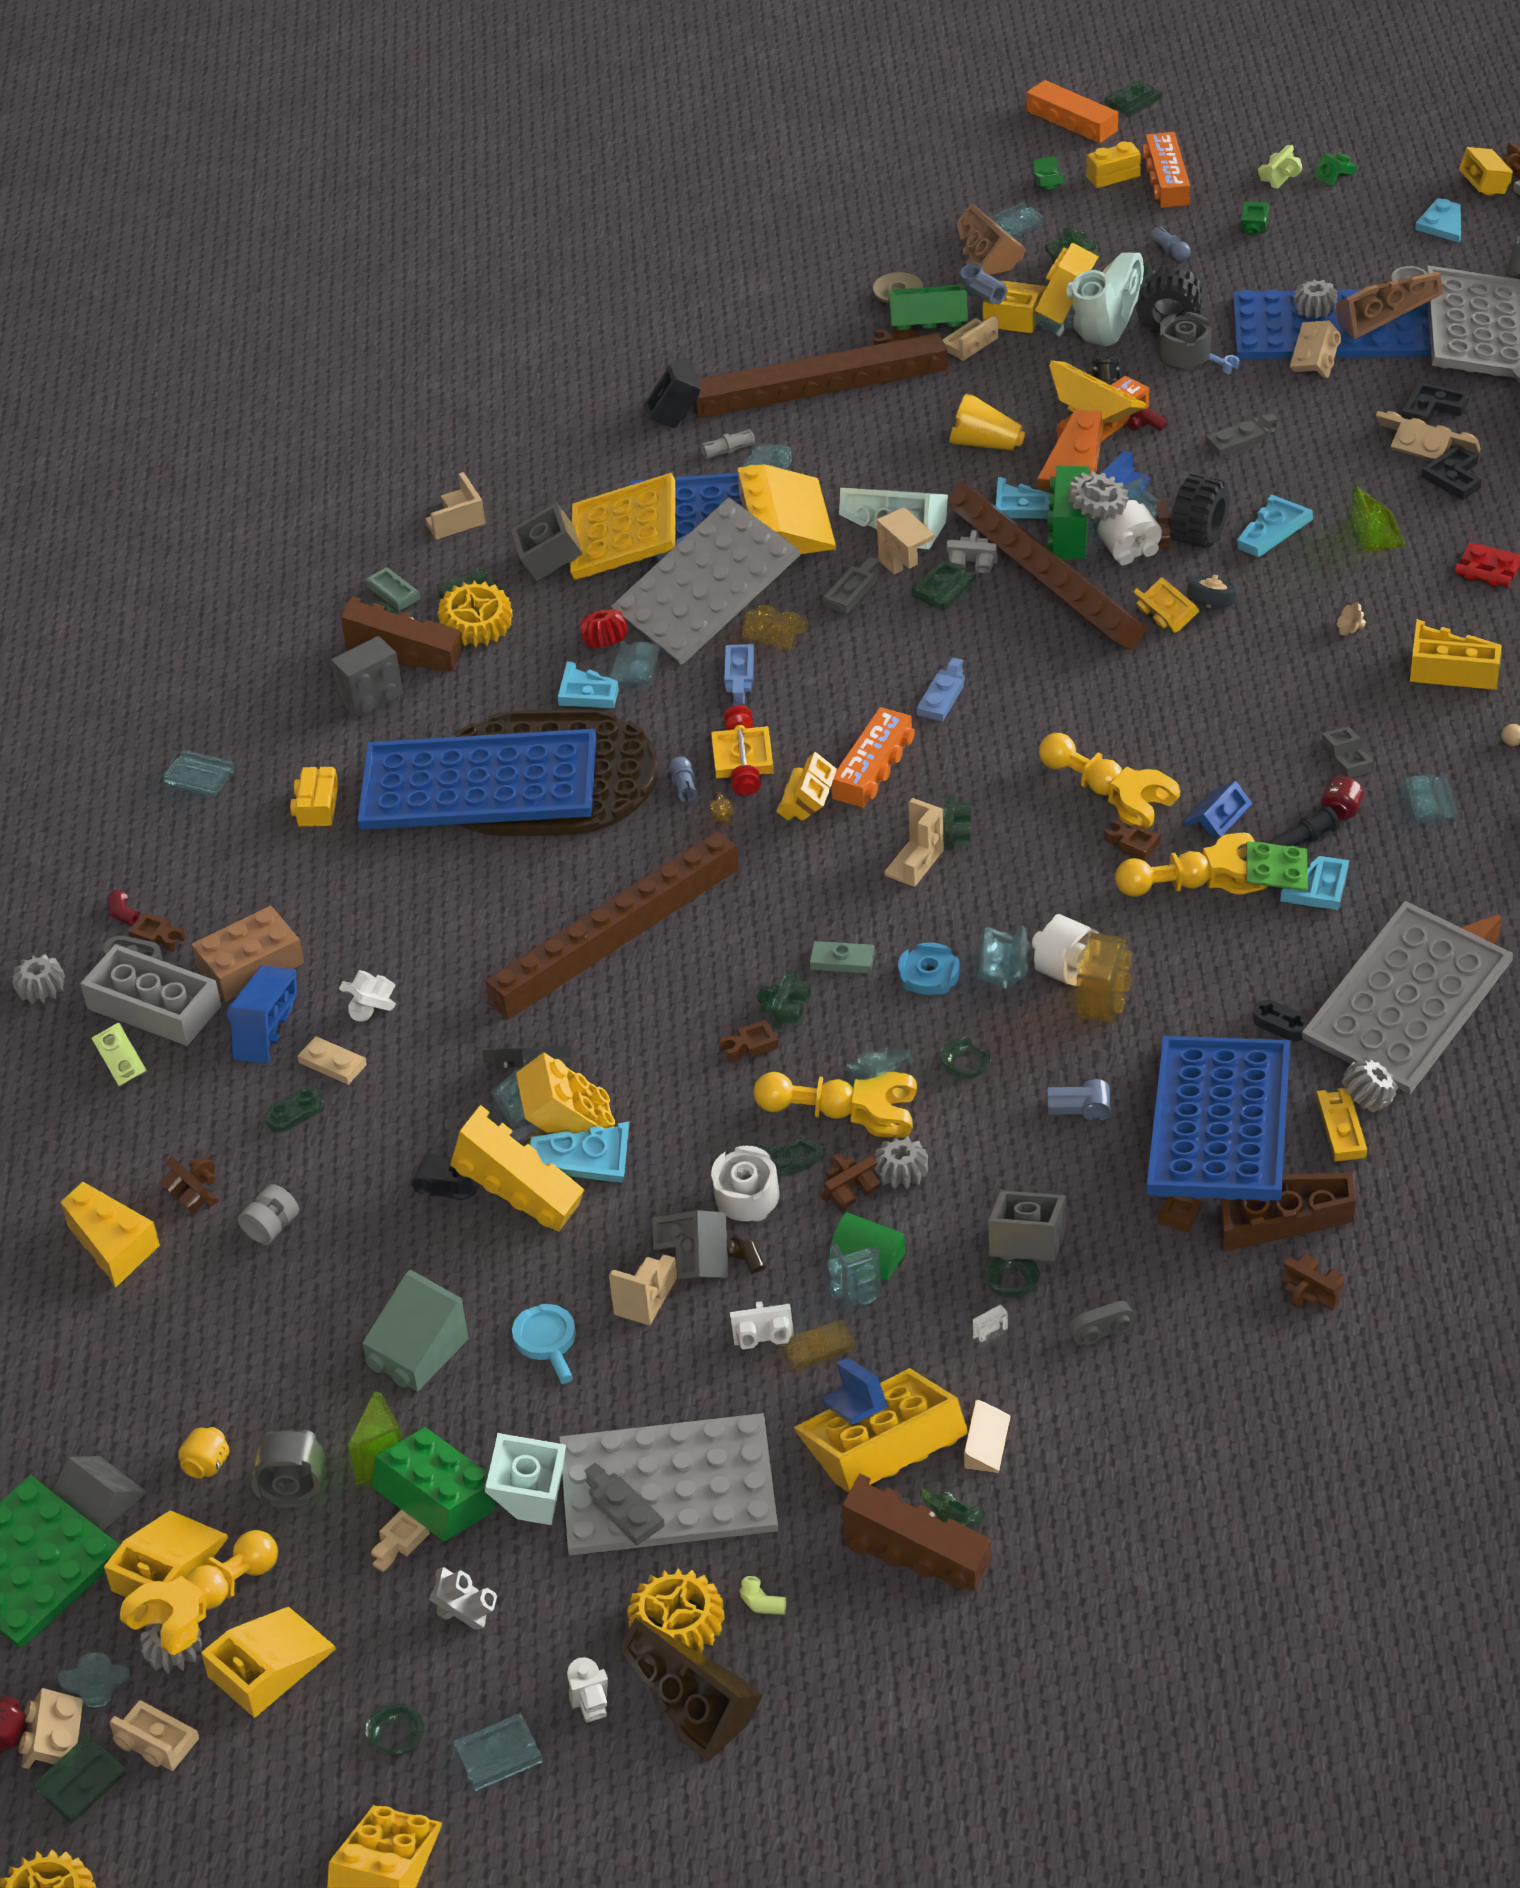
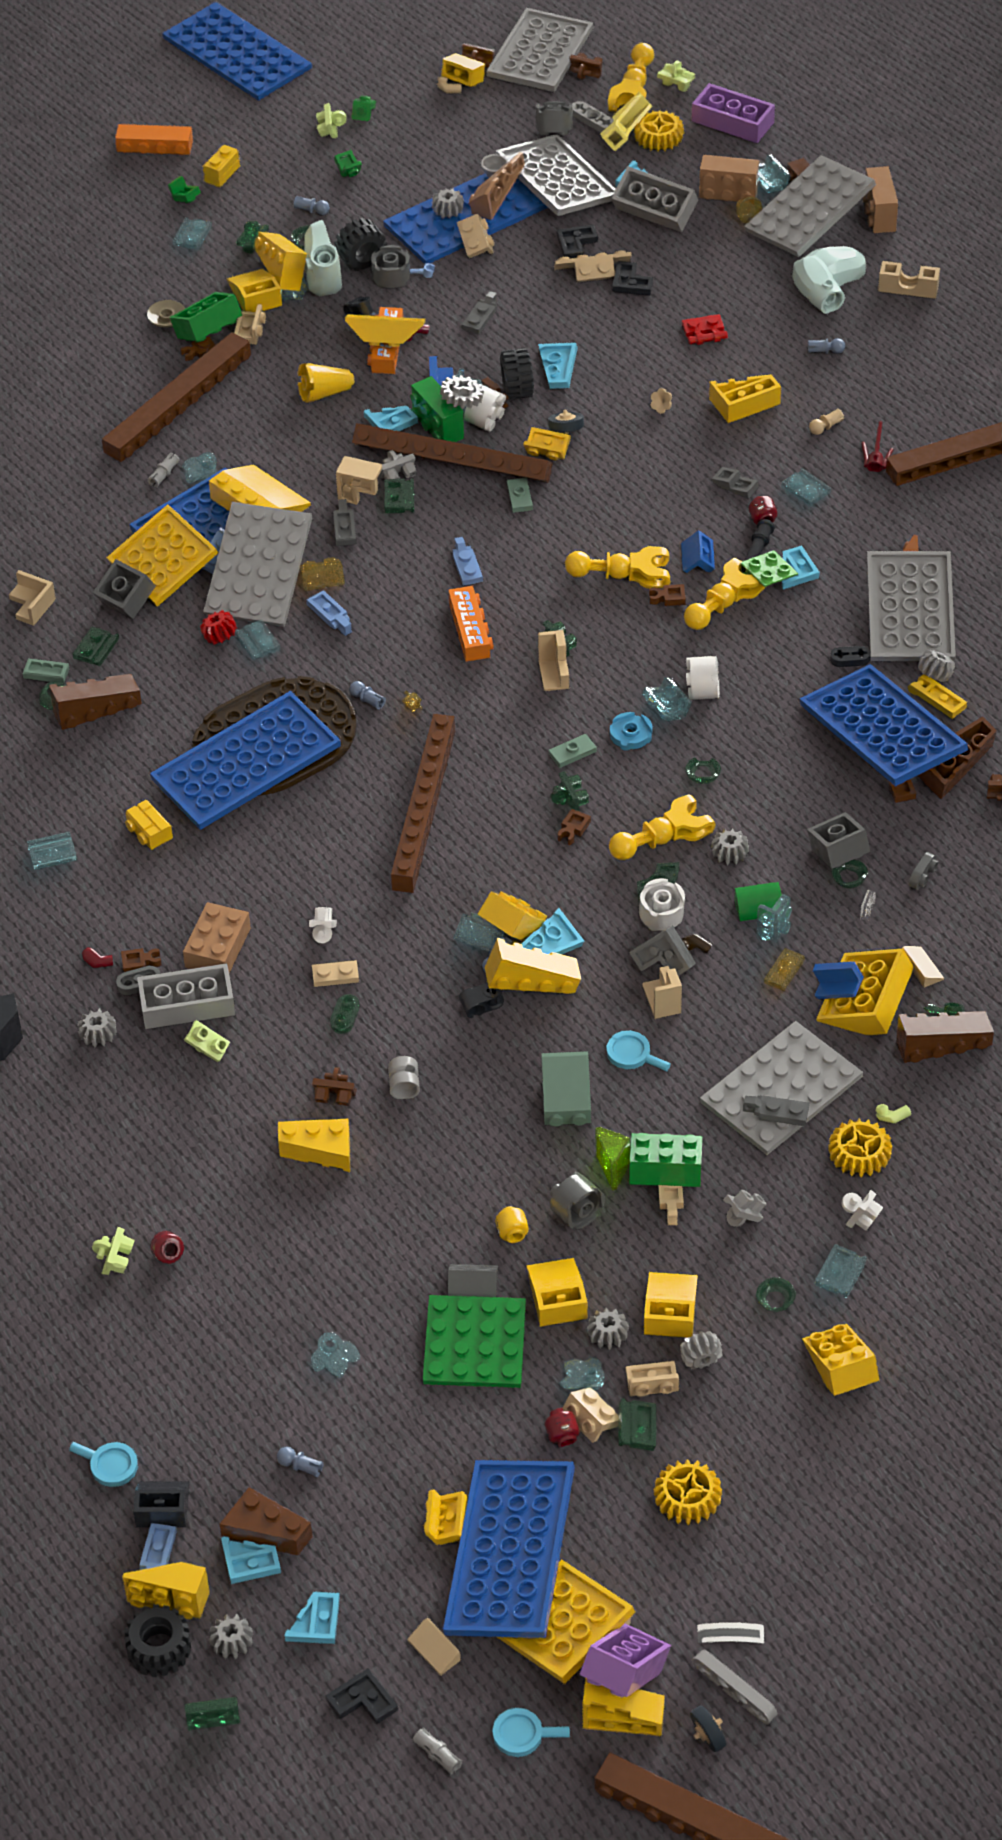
camera: 40 degrees left, 5 degrees up
(184, 1602) = (606, 1299): yellow piece -> none
(233, 1737) = (701, 1350): none -> light grey gear
(259, 1010) = (267, 968): blue wedge -> none
(367, 676) = (104, 733): dark grey brick -> none
(477, 612) = (124, 654): yellow gear -> none
(506, 1057) = (461, 904): black plate -> none
(526, 1477) = (716, 1124): light aqua slope -> none
(586, 689) = (245, 670): medium azure wing -> none
(673, 394) = (101, 452): black slope -> none
(697, 1693) = (907, 1178): dark brown wedge -> none
(742, 751) = (385, 660): yellow plate -> none
(761, 1325) = (746, 975): white hips -> none
(807, 788) = (456, 662): yellow hips -> none
(847, 1174) = (709, 869): reddish brown hips -> none
(868, 505) = (318, 463): light aqua wedge -> none
(875, 1064) = (665, 797): clear light blue plate -> none
(981, 284) = (238, 285): sand blue piece -> none
(988, 242) = (196, 258): medium nougat wedge -> none
(1076, 446) = (403, 371): orange wedge -> none
(1080, 647) = (519, 495): none -> sand green plate
(1090, 1100) = (794, 755): sand blue piece -> none
(1103, 978) = (741, 682): clear yellow brick -> none
(1133, 98) = (181, 112): clear green plate -> none
(1166, 169) = (259, 154): orange brick -> none
(1260, 44) = (202, 29): none -> blue piece
(1374, 523) = (615, 335): clear neon green slope -> none
(1442, 220) = (464, 115): medium azure wing -> none
(1455, 185) = (448, 88): none -> tan arm

